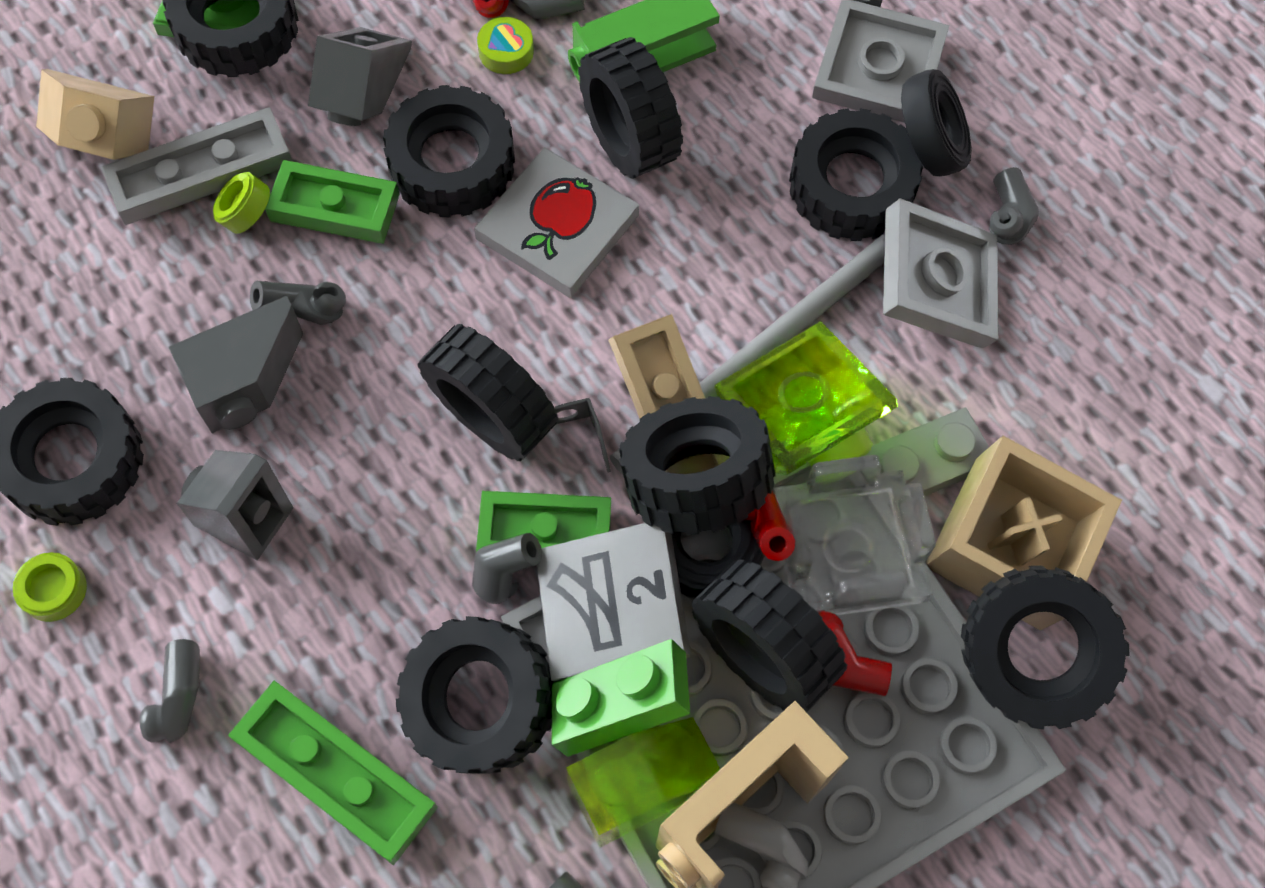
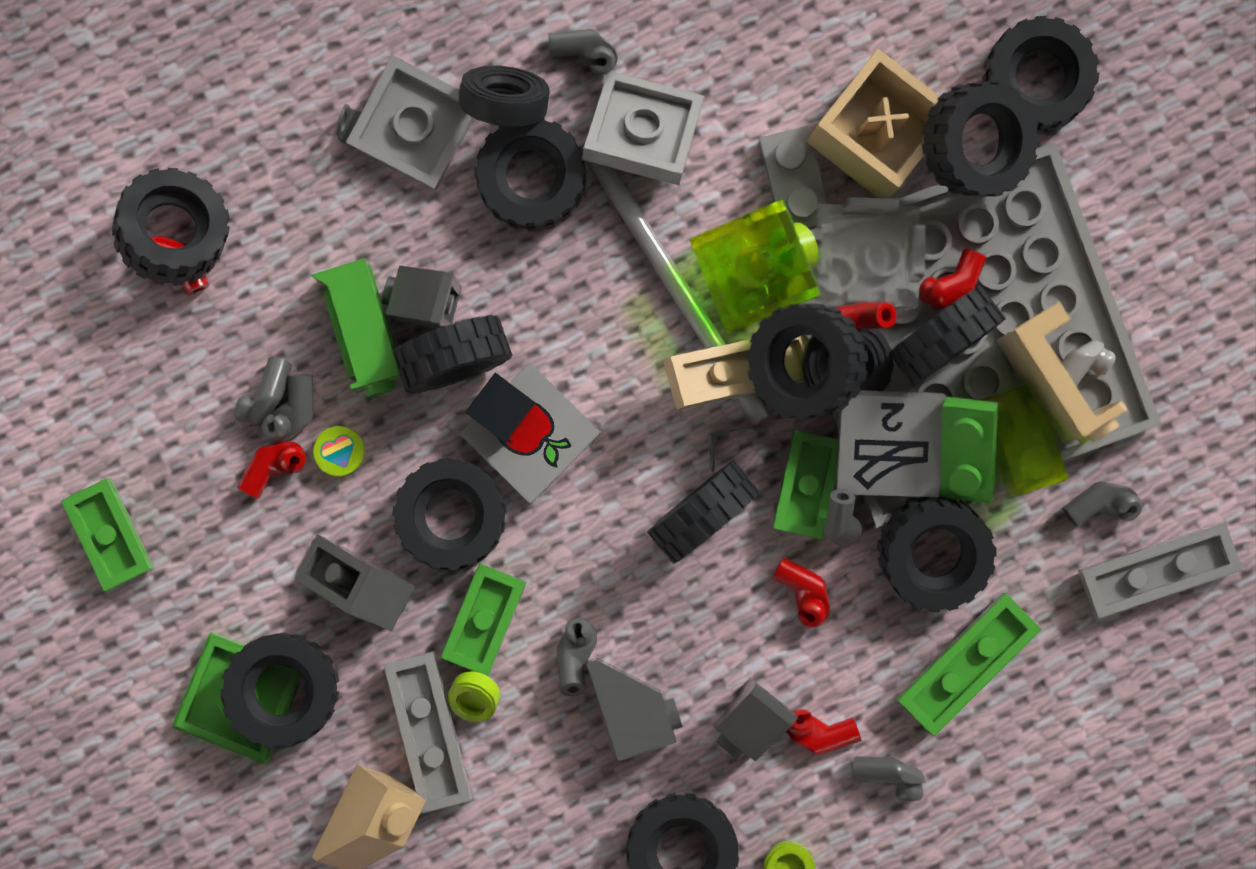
camera: 75 degrees left, 20 degrees up
(222, 595) = (820, 737): none -> red arm
(411, 556) = (809, 592): none -> red arm
(579, 176) = (500, 407): none -> black tile
(693, 81) = (421, 297): none -> dark grey slope
(1204, 732) = (1067, 46): none -> black tyre

